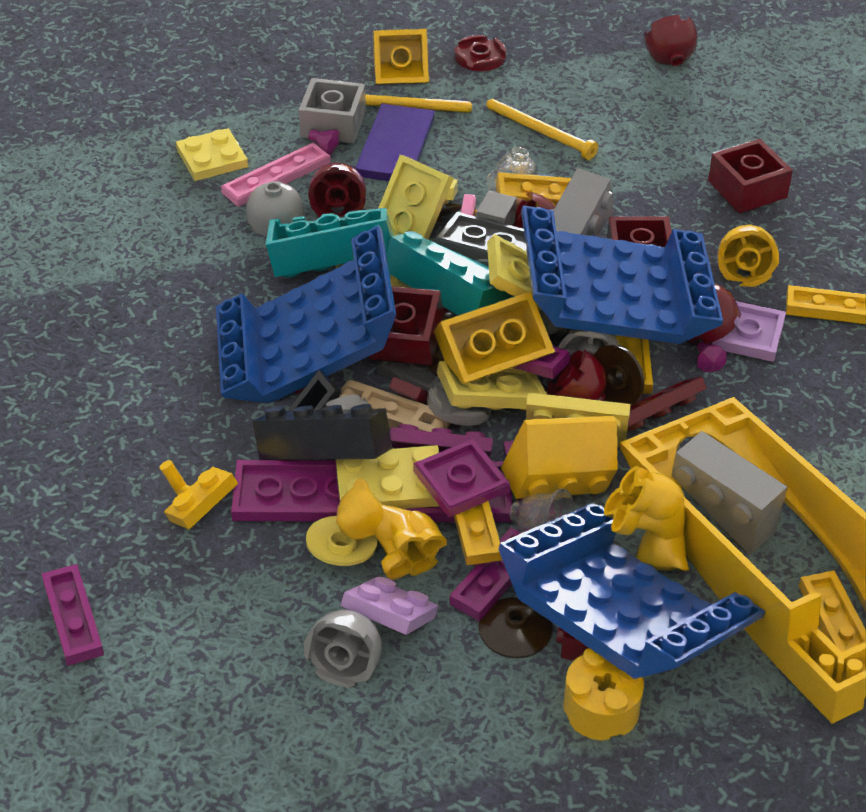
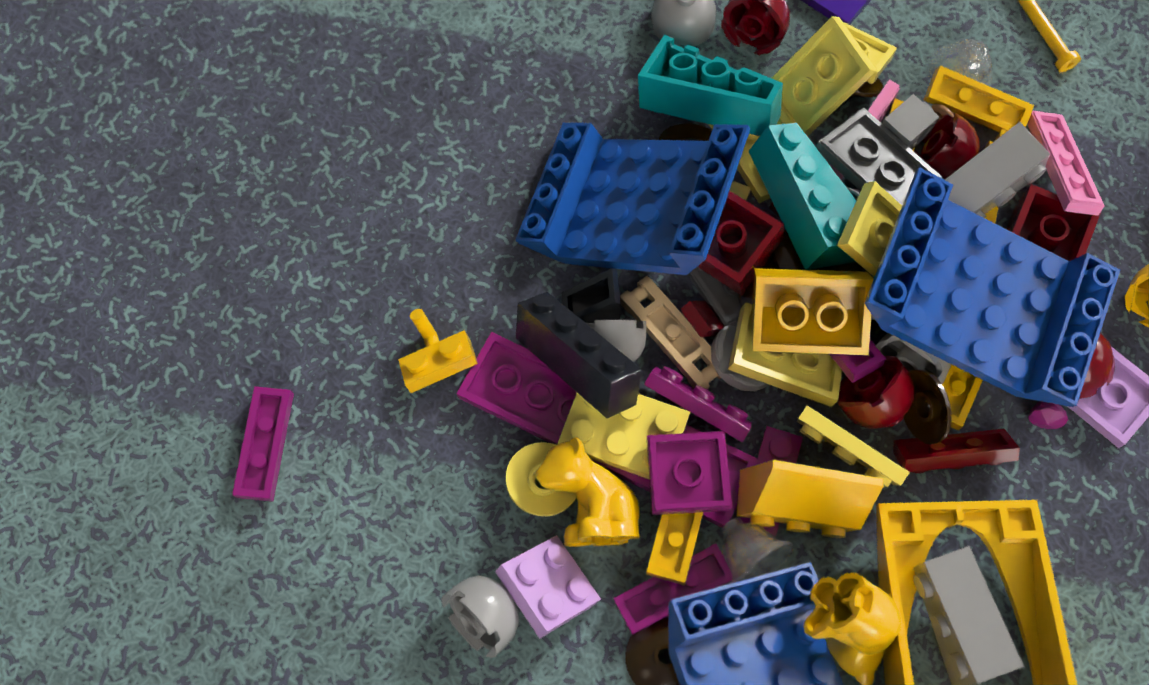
camera: 30 degrees right, 25 degrees up
(637, 205) = (1065, 164): none -> bright pink tile

